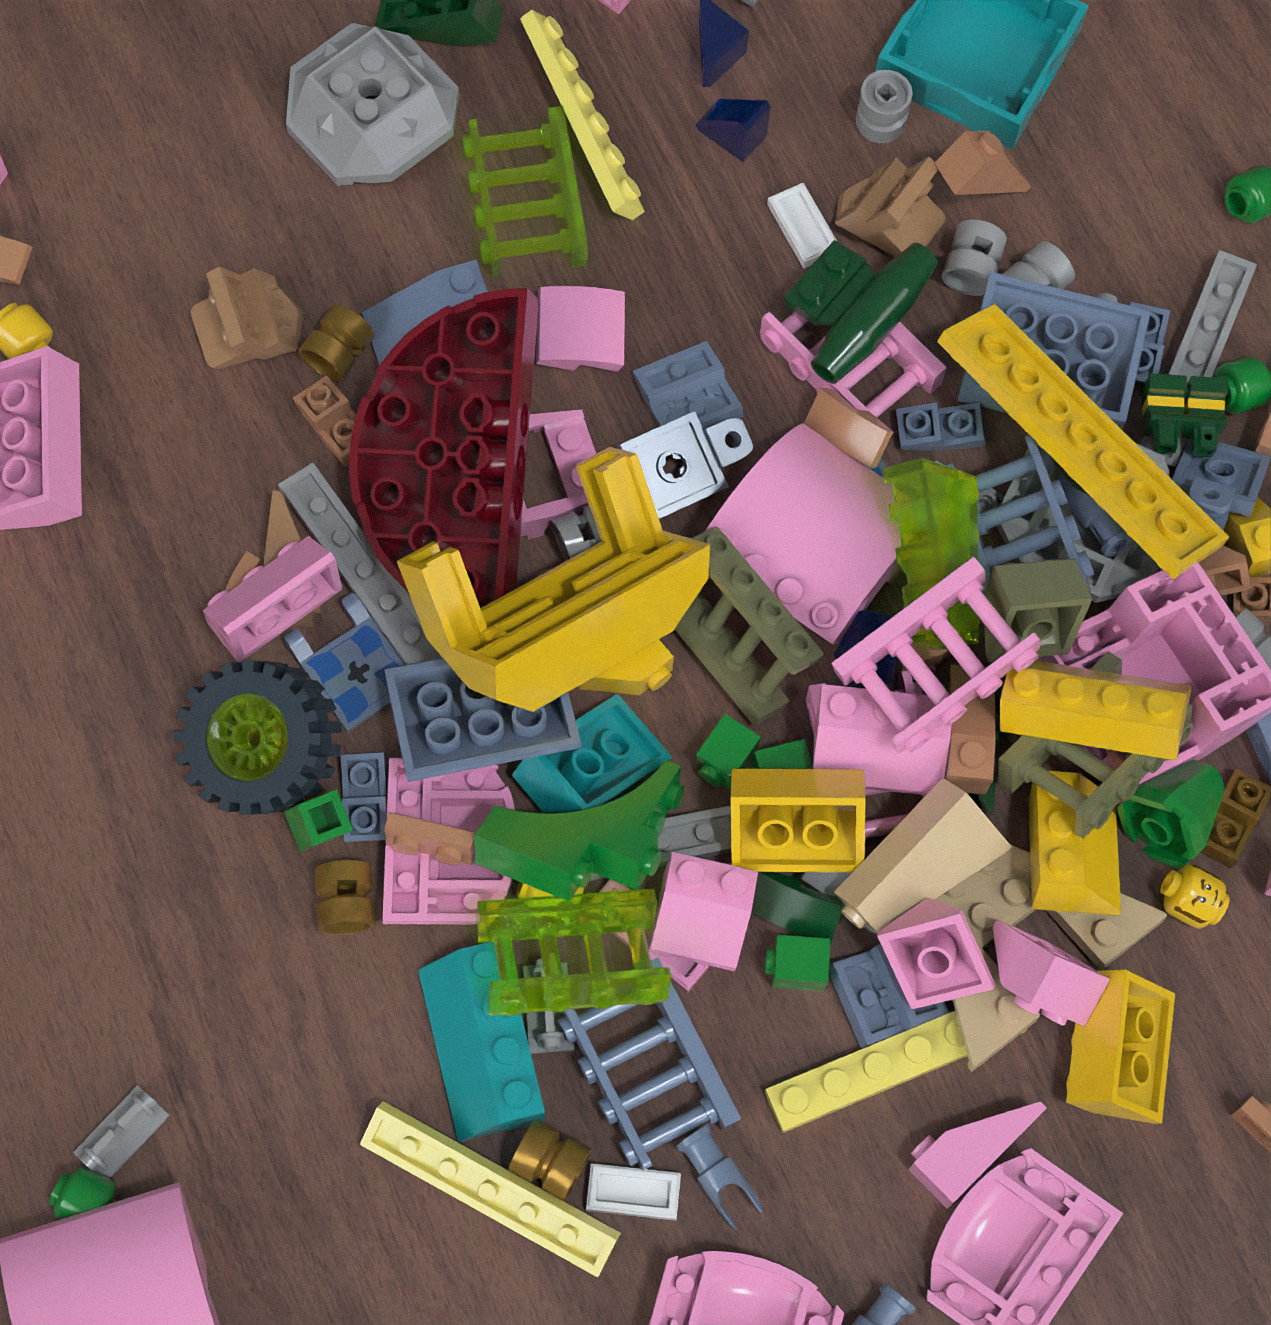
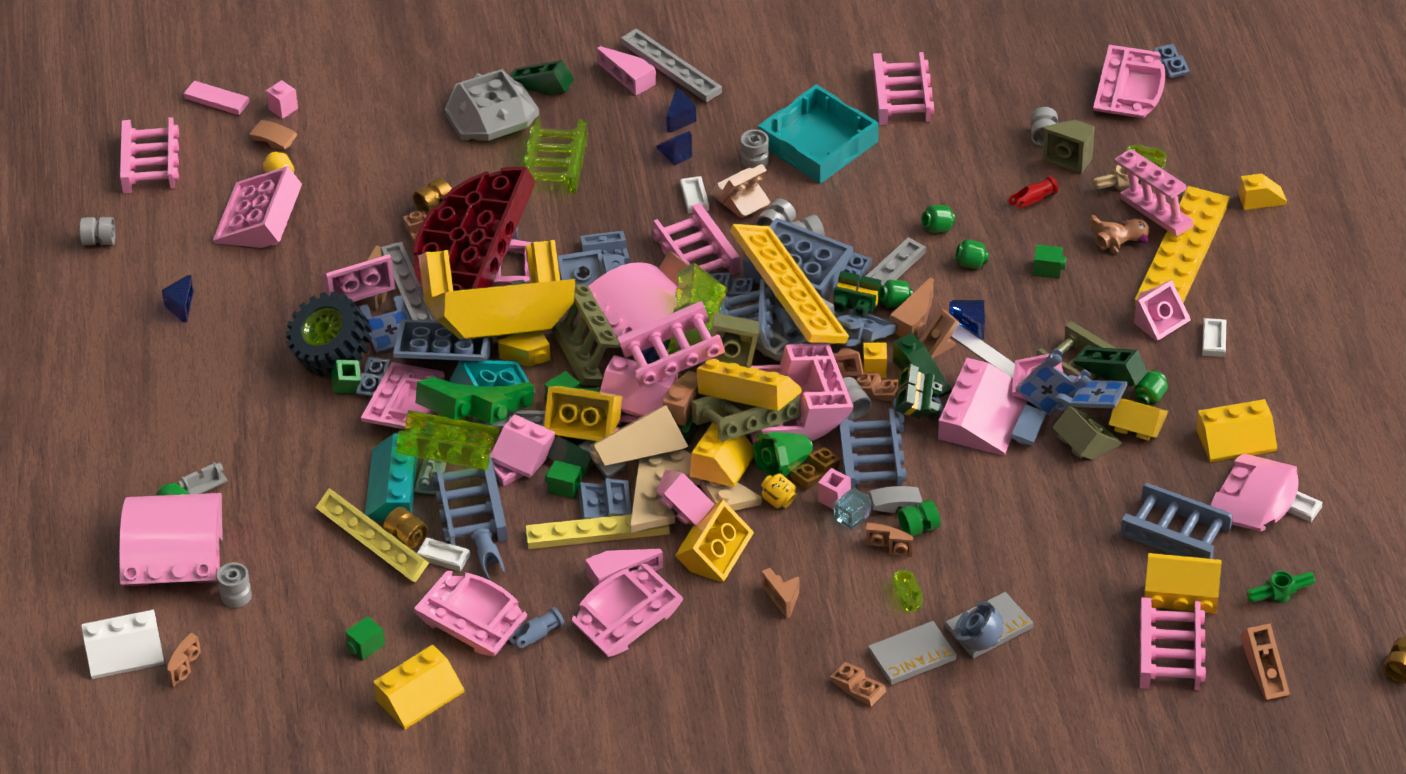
camera: 20 degrees right, 25 degrees down
(245, 318) = (391, 179): medium nougat piece -> none
(348, 911) = (347, 410): pearl gold wheel -> none
(444, 842) = (395, 387): nougat plate -> none
(580, 327) = (560, 213): bright pink slope -> none
(586, 122) = (597, 129): light yellow plate -> none
(857, 304) = (701, 219): dark green plate -> none
(934, 954) = (627, 476): bright pink slope -> none
(980, 166) = (789, 173): nougat slope -> none

